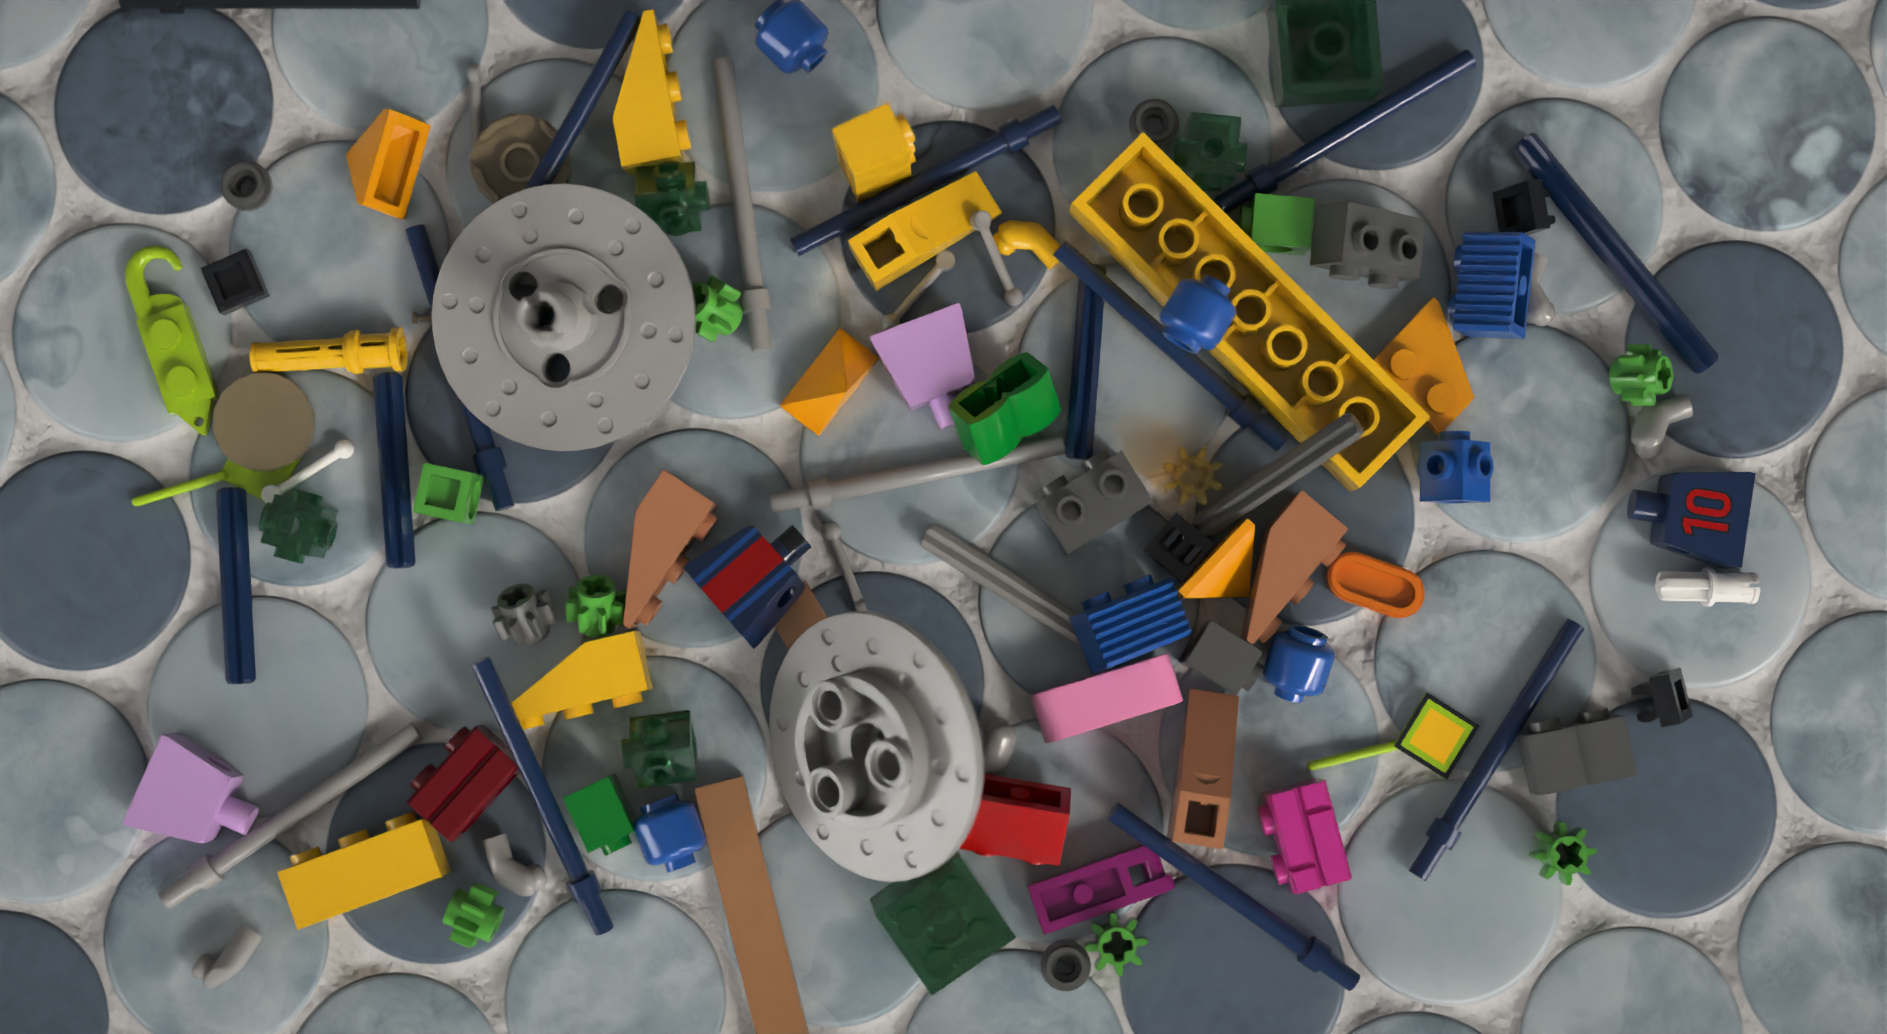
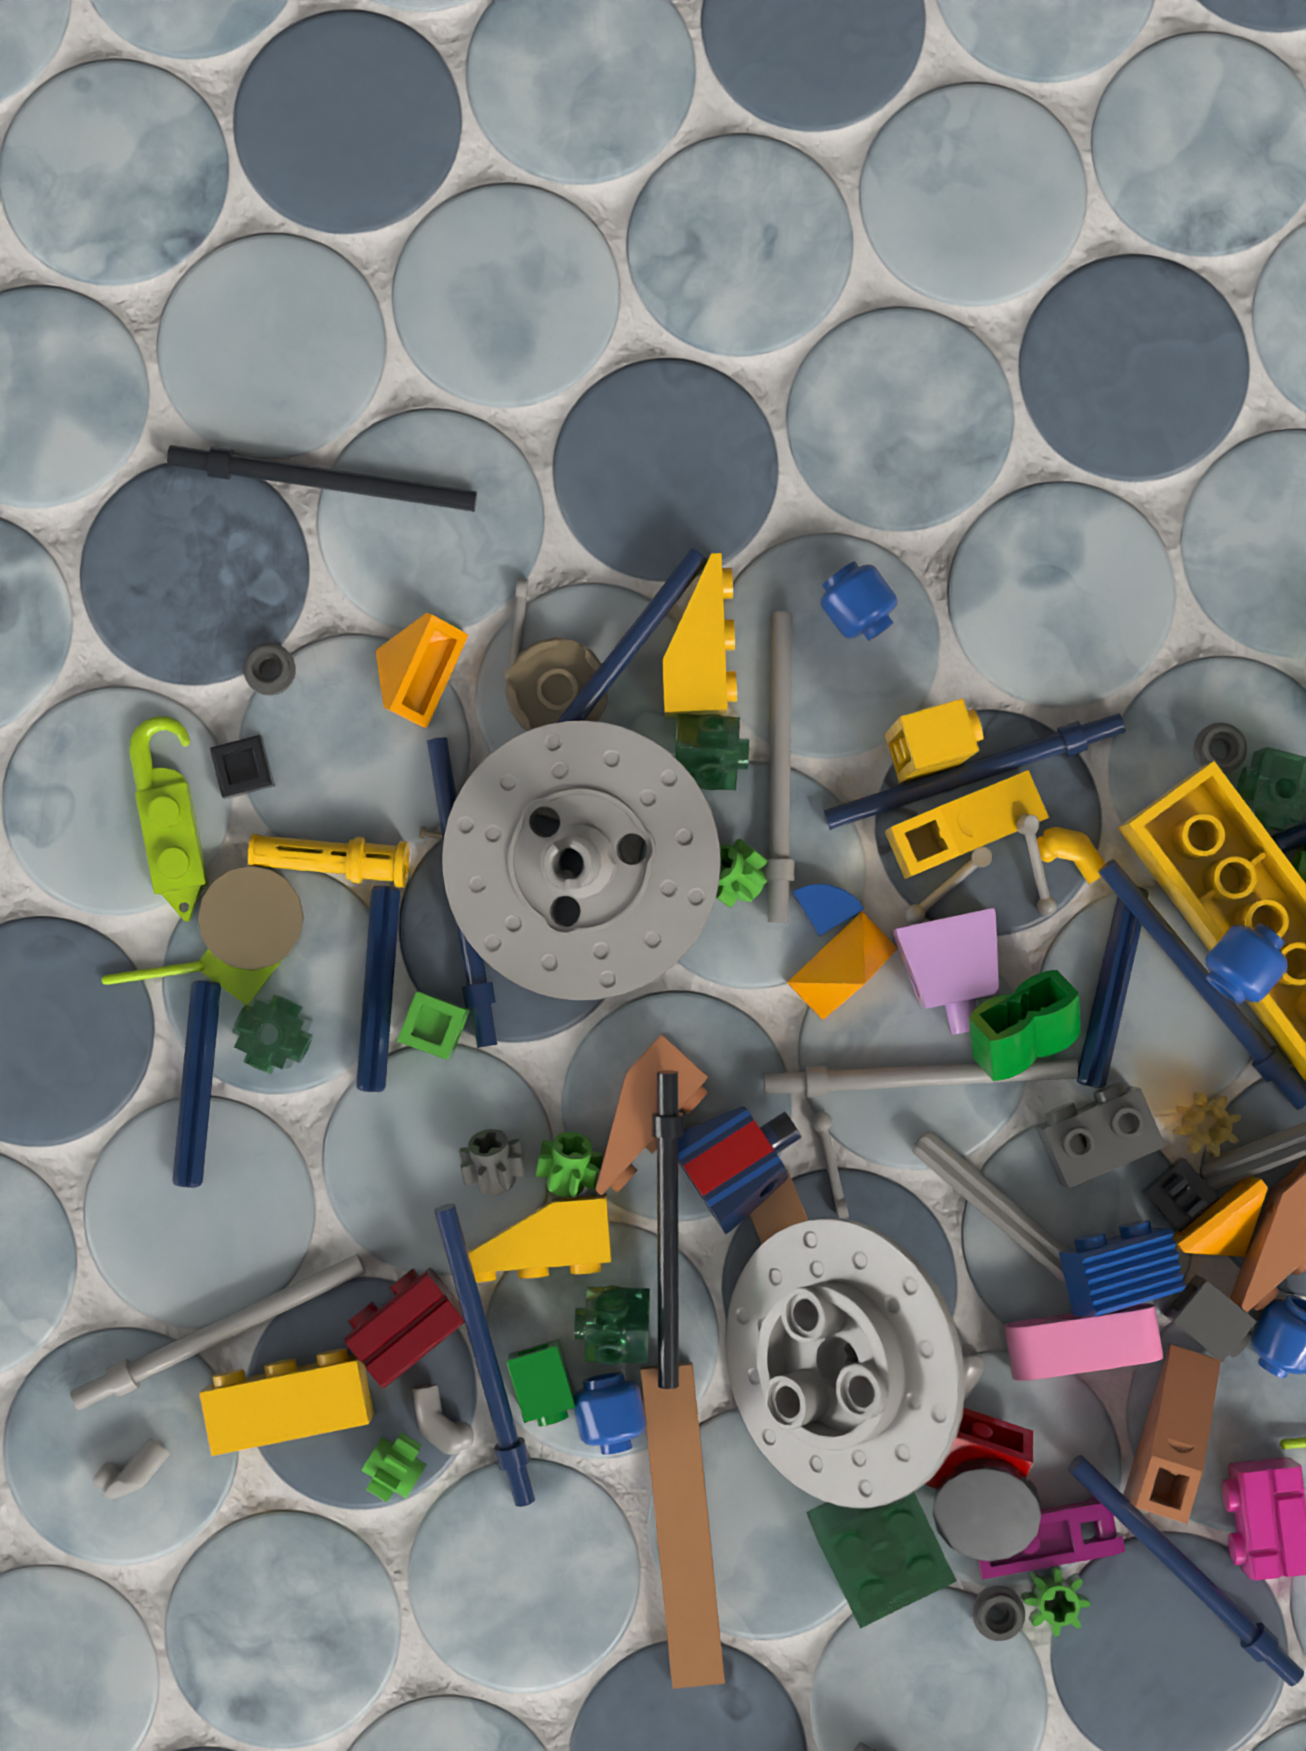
camera: 10 degrees right, 0 degrees up
(189, 794) = (118, 1295): lavender torso -> none
(342, 449) = (248, 993): white hinge -> none
(681, 553) = (667, 1128): none -> black bar
(806, 327) = (826, 905): none -> blue tile
(1034, 866) = (986, 1510): none -> tile

